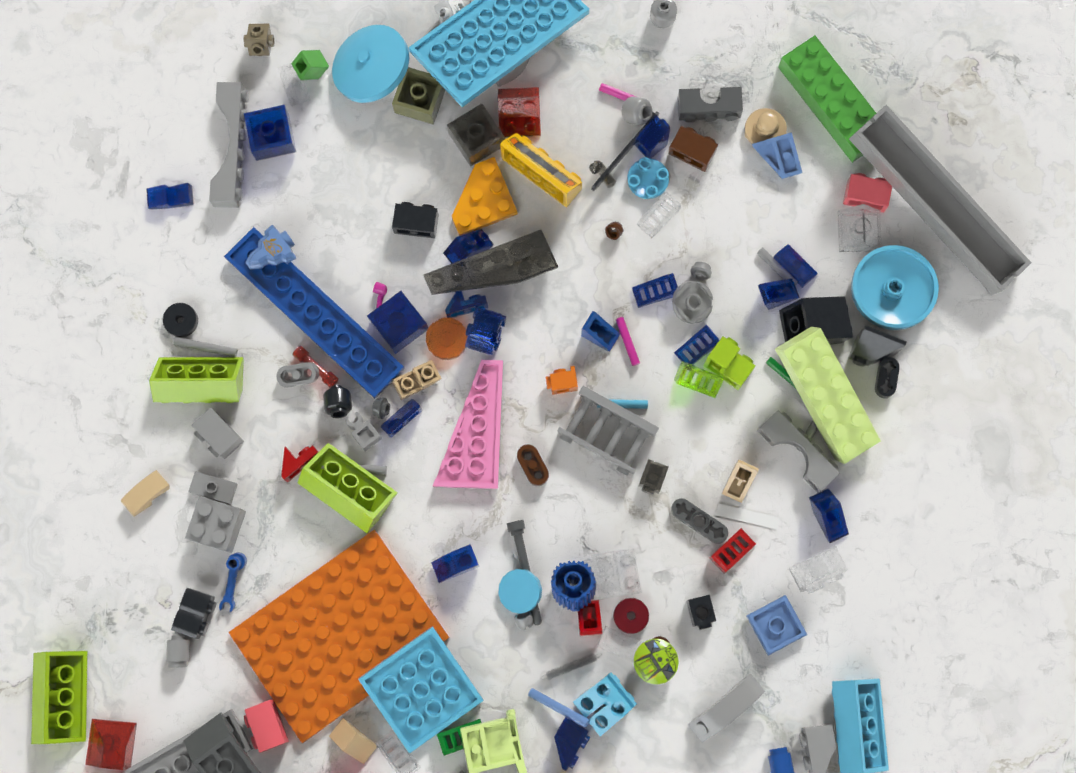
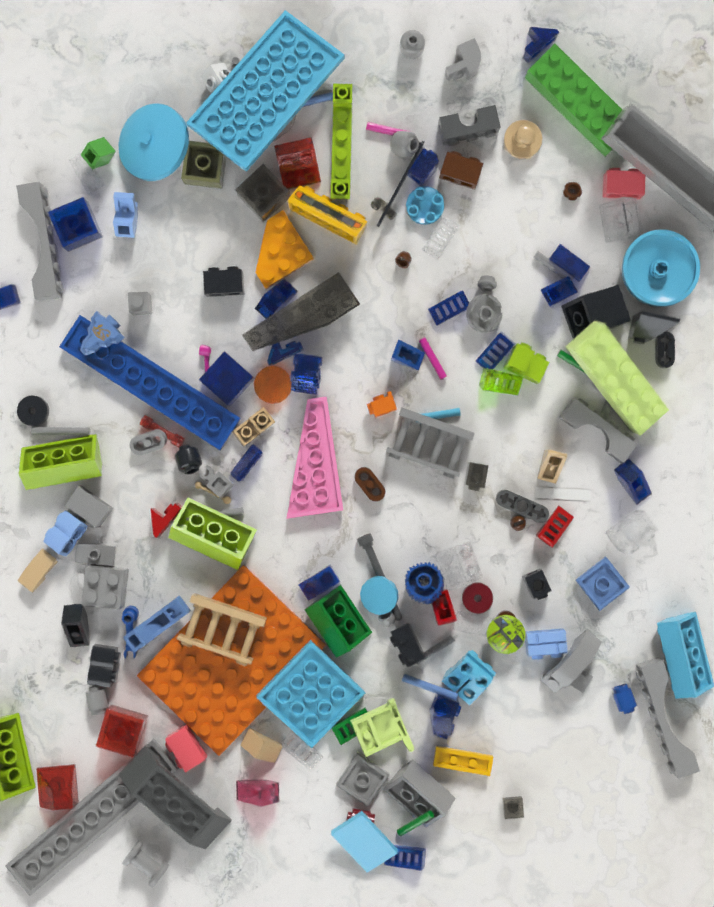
camera: 10 degrees left, 10 degrees up
(173, 562) = (75, 625): none -> black slope
(185, 457) = (65, 533): none -> light blue brick
(198, 691) = (121, 730): none -> clear red brick
(259, 39) = (46, 137): dark tan brick -> none
(264, 577) = (156, 624): none -> medium blue arch
(320, 226) = (139, 303): none -> light grey brick
(326, 131) = (126, 214): none -> light blue brick
(335, 572) = (218, 609): none -> tan fence
(343, 433) = (198, 485): none -> tan hinge
(381, 408) = (227, 458): dark grey plate -> none
(468, 612) = (338, 621): none -> green slope
(542, 653) = (408, 645): none -> black brick
(553, 51) = (320, 98): none -> medium blue piece
(563, 746) = (441, 721): none -> clear blue slope
(571, 96) = (341, 141): none -> lime slope
(691, 544) = (516, 519): none -> reddish brown hinge
(700, 680) = (546, 642): none -> light blue brick
(721, 39) = (469, 61): none -> light grey brick
(733, 733) = (582, 681): none -> light grey plate
(780, 155) = (540, 162): medium blue wing -> none
(801, 31) = (541, 39): none -> clear blue slope
(810, 185) = (572, 186): none -> reddish brown plate

